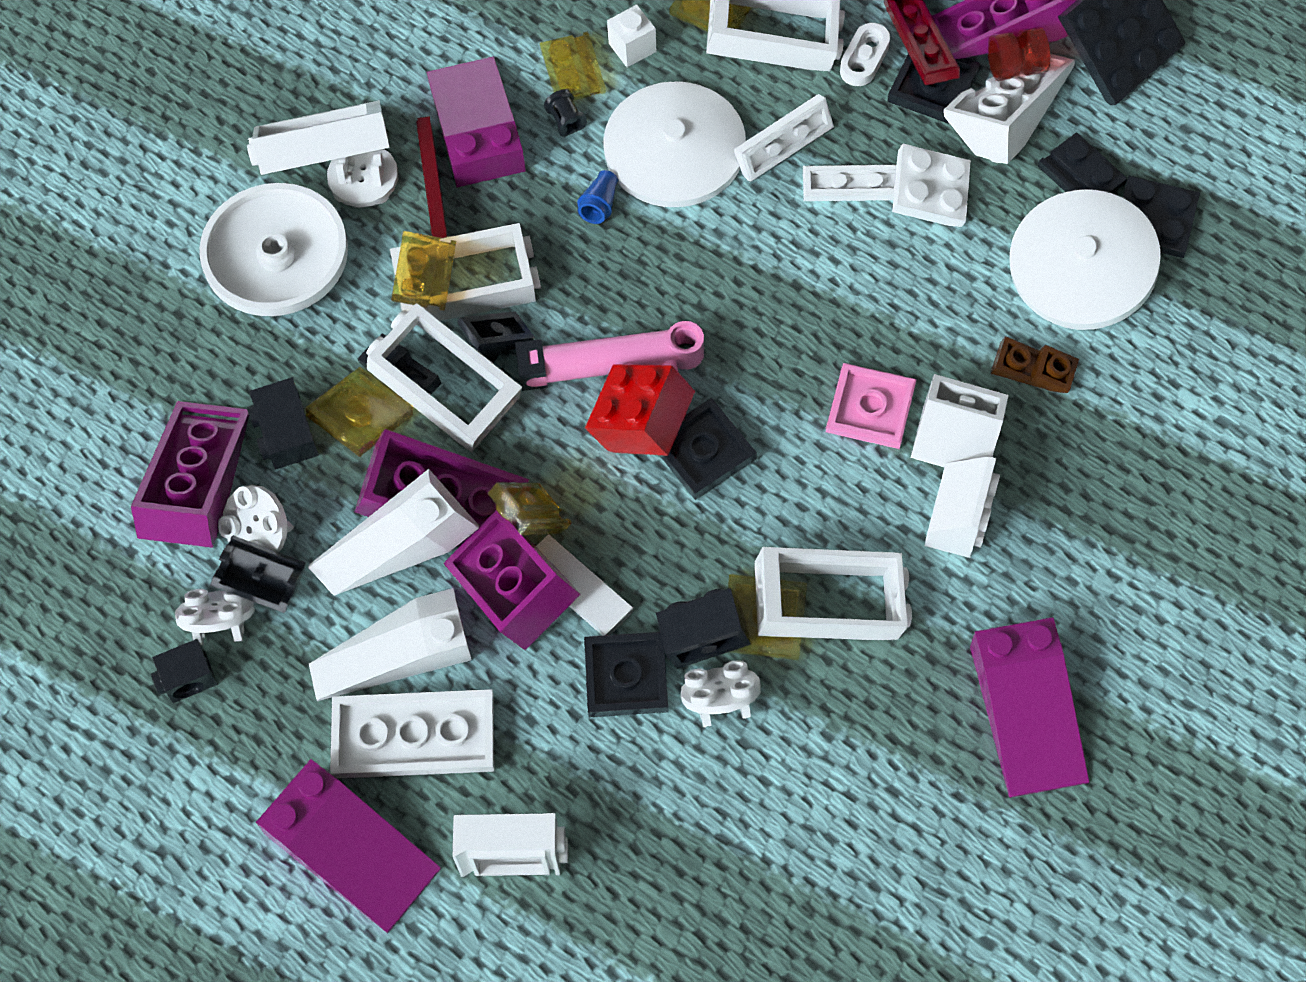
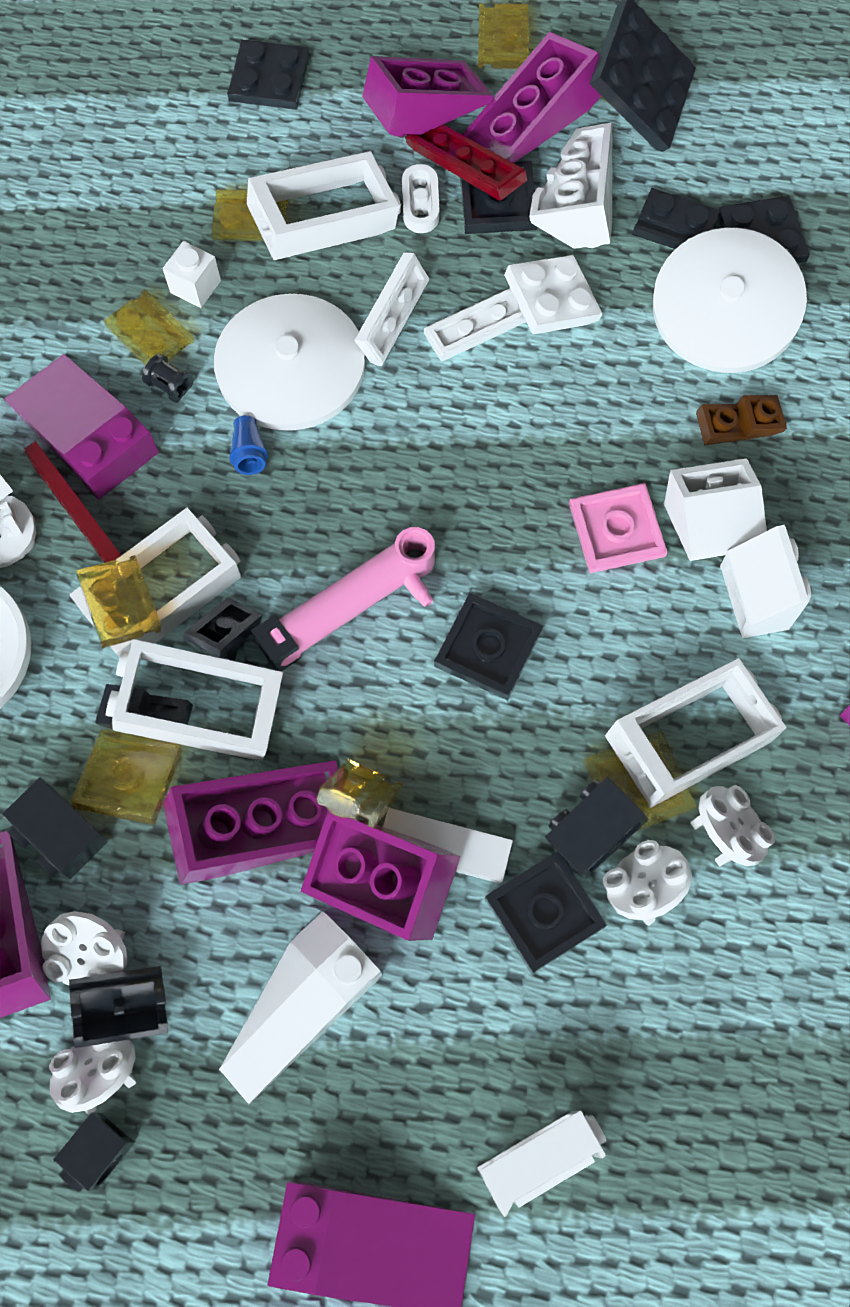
camera: 30 degrees left, 5 degrees up
(402, 533) = (245, 884): white wedge -> none
(412, 734) = (368, 1089): white plate -> none
(640, 409) = (412, 638): red brick -> none
(817, 682) = (733, 826): none -> white plate
(1021, 53) = (567, 135): clear red wheel -> none

